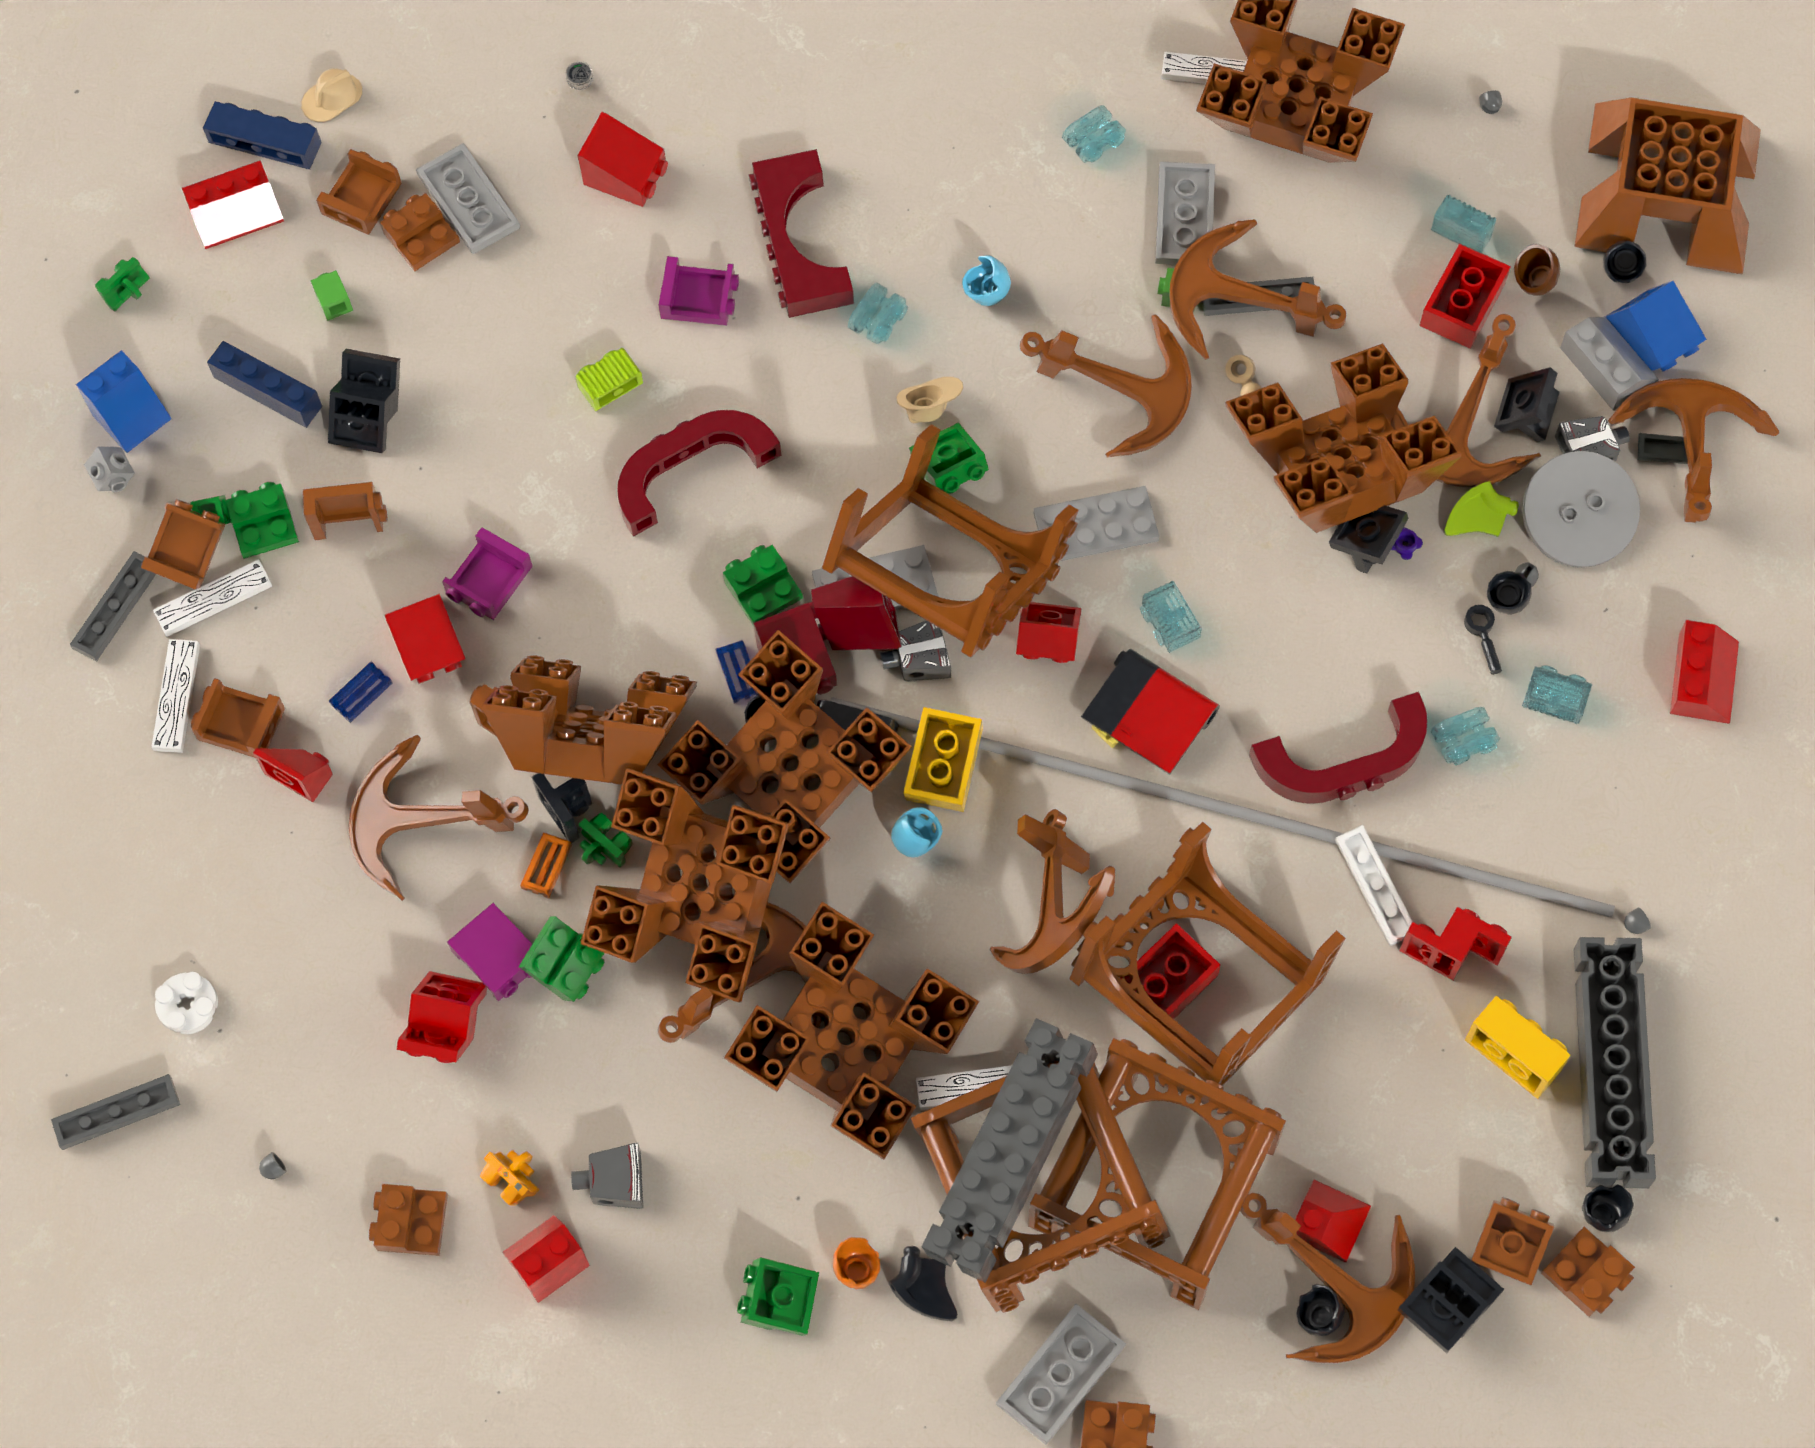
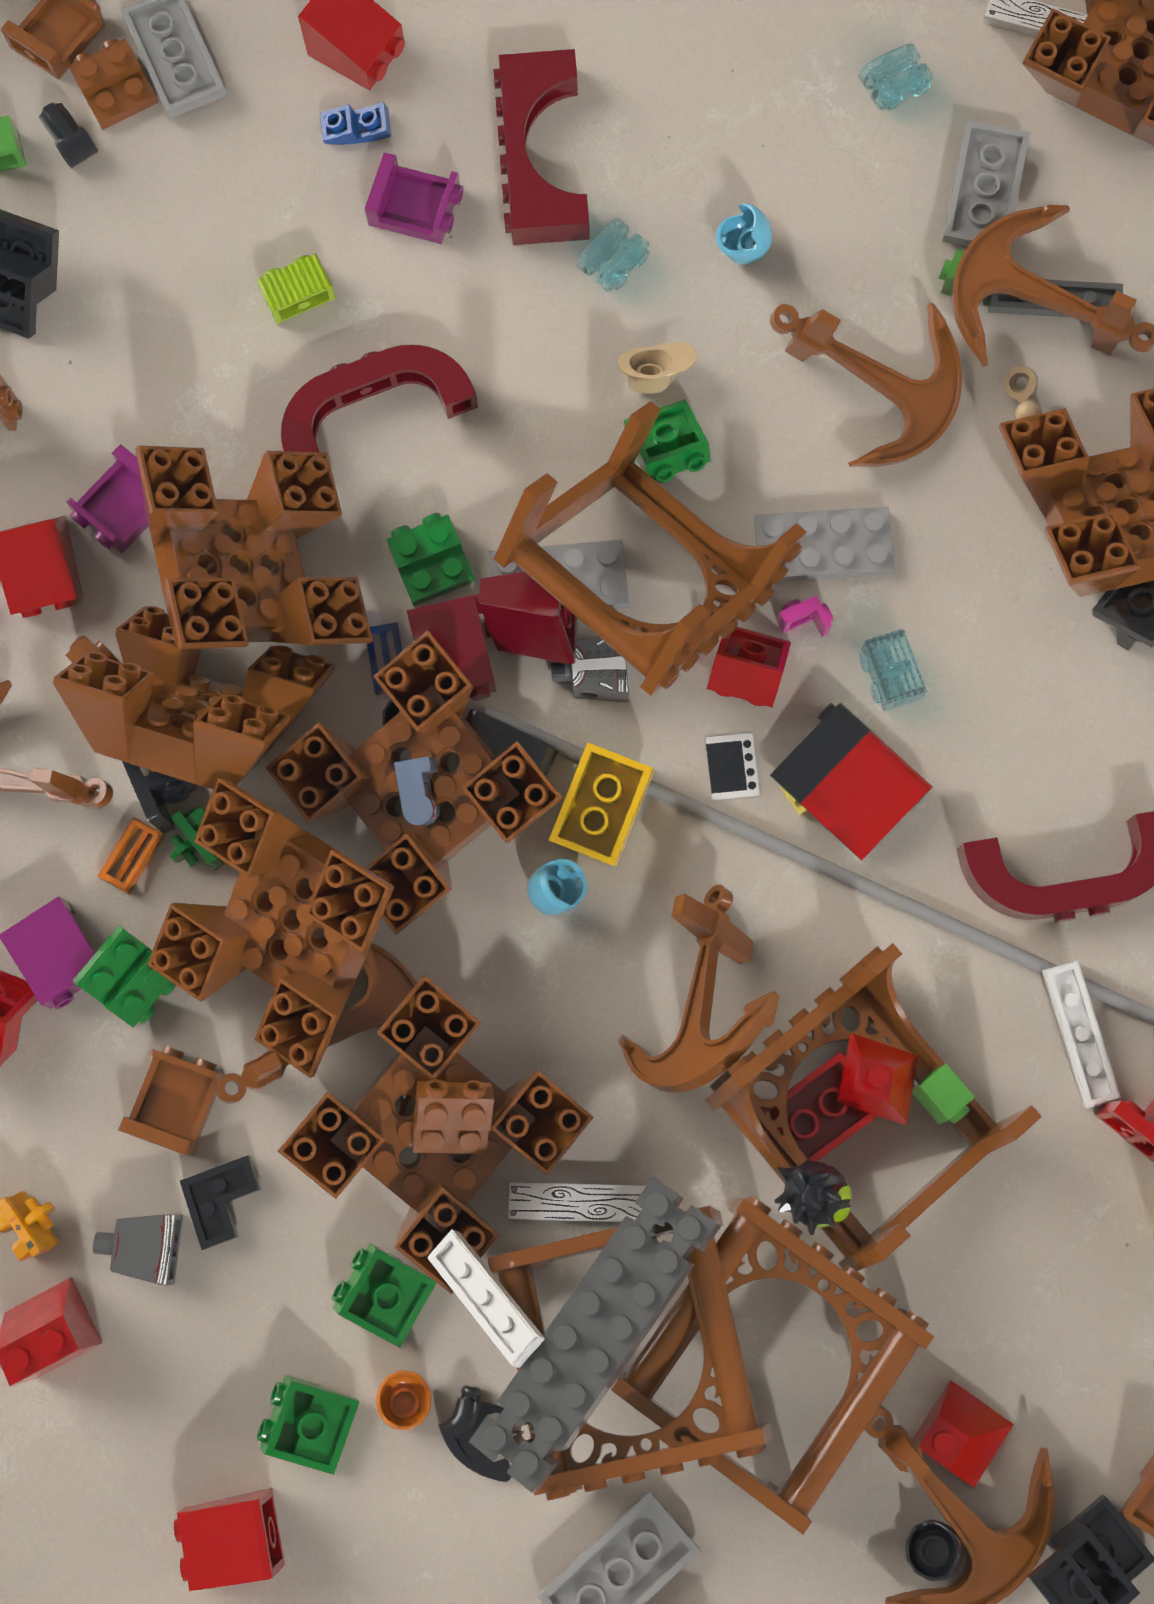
camera: 10 degrees right, 10 degrees up
(391, 284) = (70, 139): none -> black piece
(600, 605) = (236, 564): none -> dark orange slope
(618, 1056) = (173, 1101): none -> dark orange panel
(631, 239) = (348, 126): none -> blue slope
(663, 1126) = (209, 1195): none -> black plate
(727, 1397) = (229, 1541): none -> red slope
(786, 764) = (415, 790): none -> sand blue leg
(824, 1182) = (382, 1294): none -> green plate
(862, 1016) = (452, 1117): none -> dark orange plate
(915, 1141) = (486, 1298): none -> white tile
(1048, 716) = (732, 766): none -> black sticker
(1085, 582) = (798, 613): none -> dark pink bracket
(1171, 1027) = (814, 1195): none -> black hair
(1210, 940) = (878, 1079): none -> red slope
(1266, 945) = (943, 1095): none -> bright green brick

